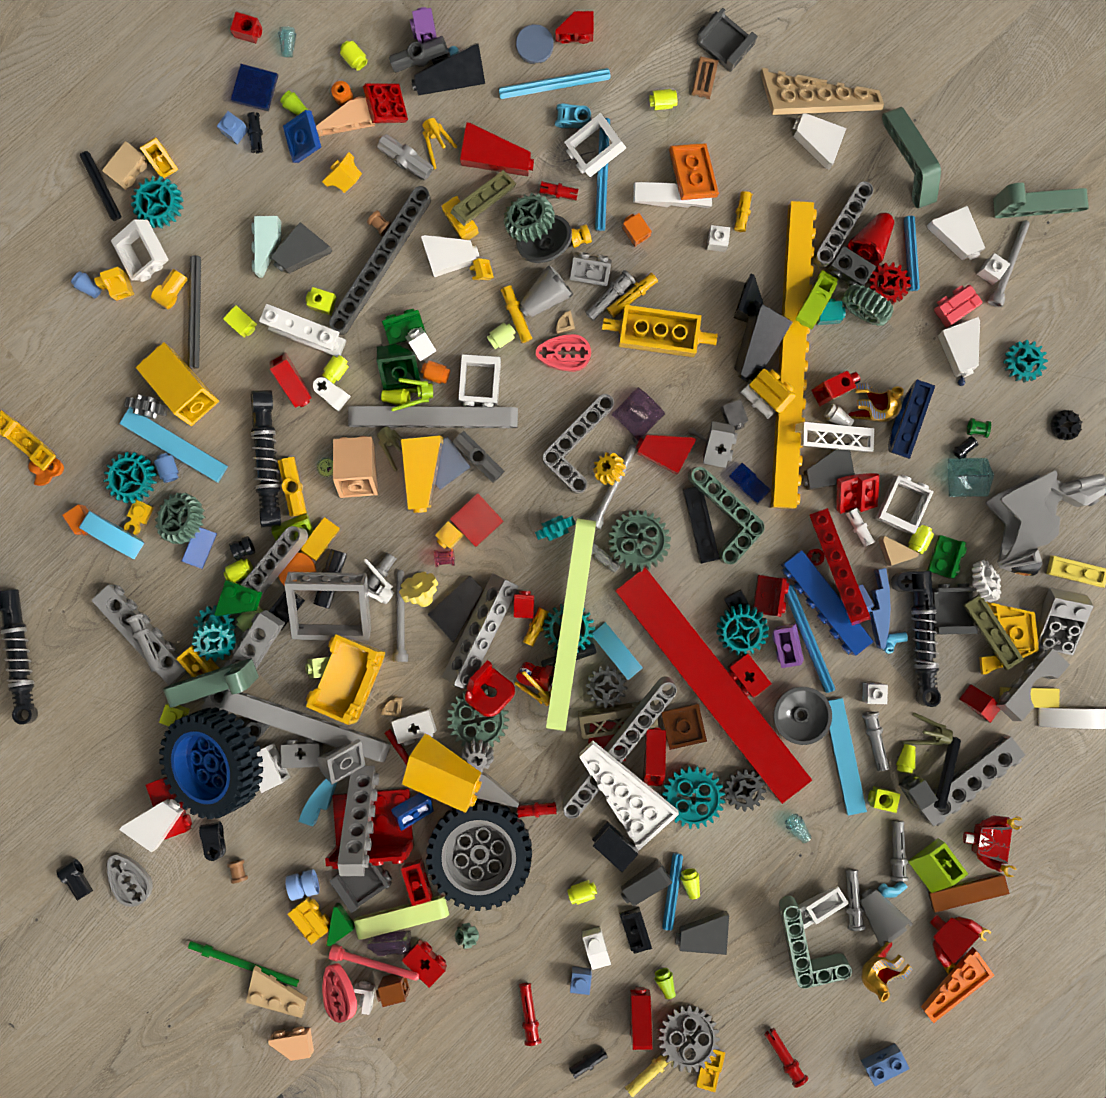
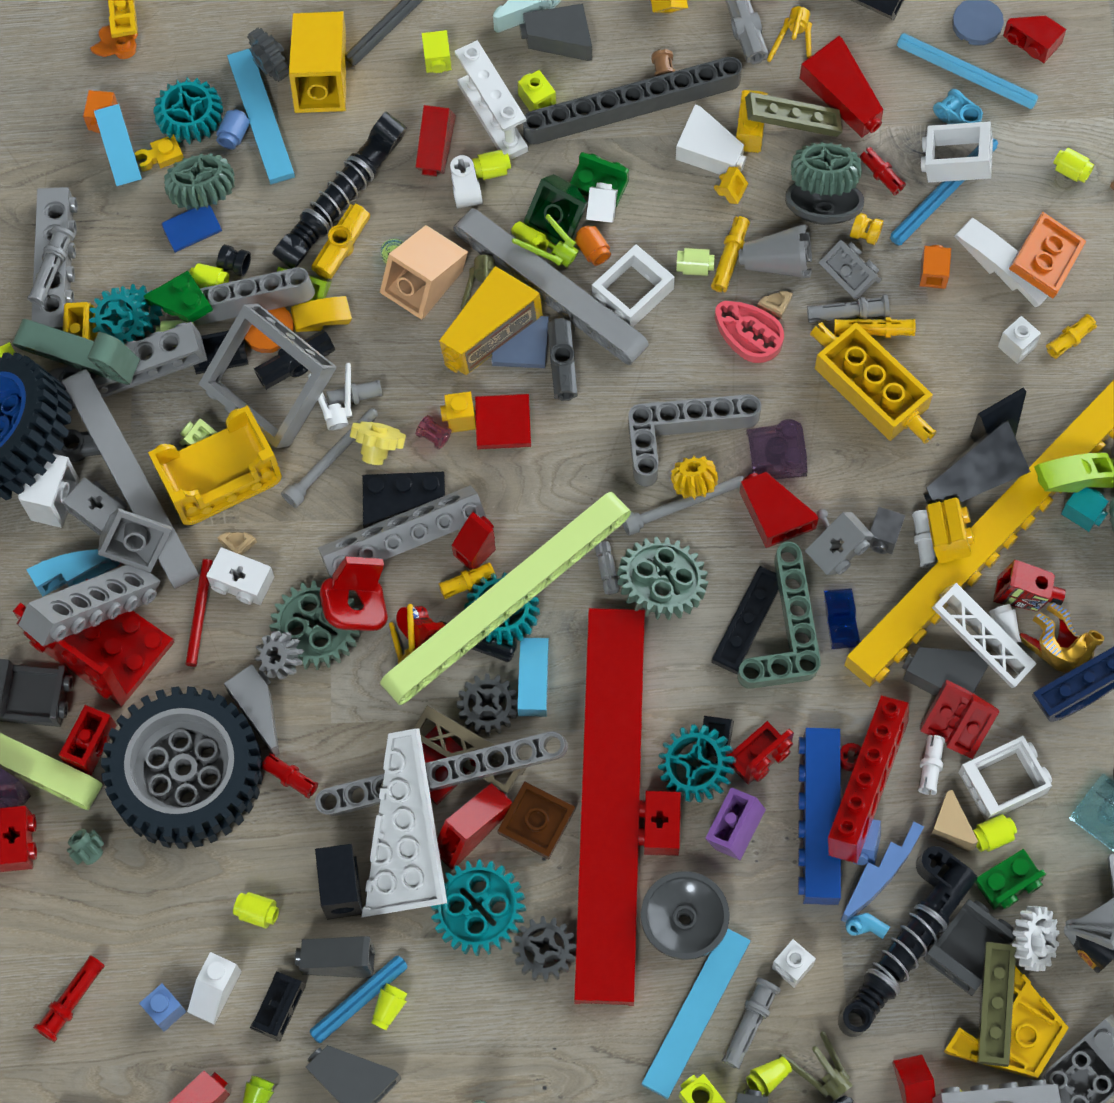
camera: 35 degrees right, 20 degrees down
(412, 810) = (155, 662): blue slope -> none
(442, 774) = (221, 636): yellow slope -> none
(555, 528) = (578, 487): teal gear -> none
(797, 826) = (569, 1048): clear light blue cone -> none
(809, 640) = (766, 842): dark azure axle -> none

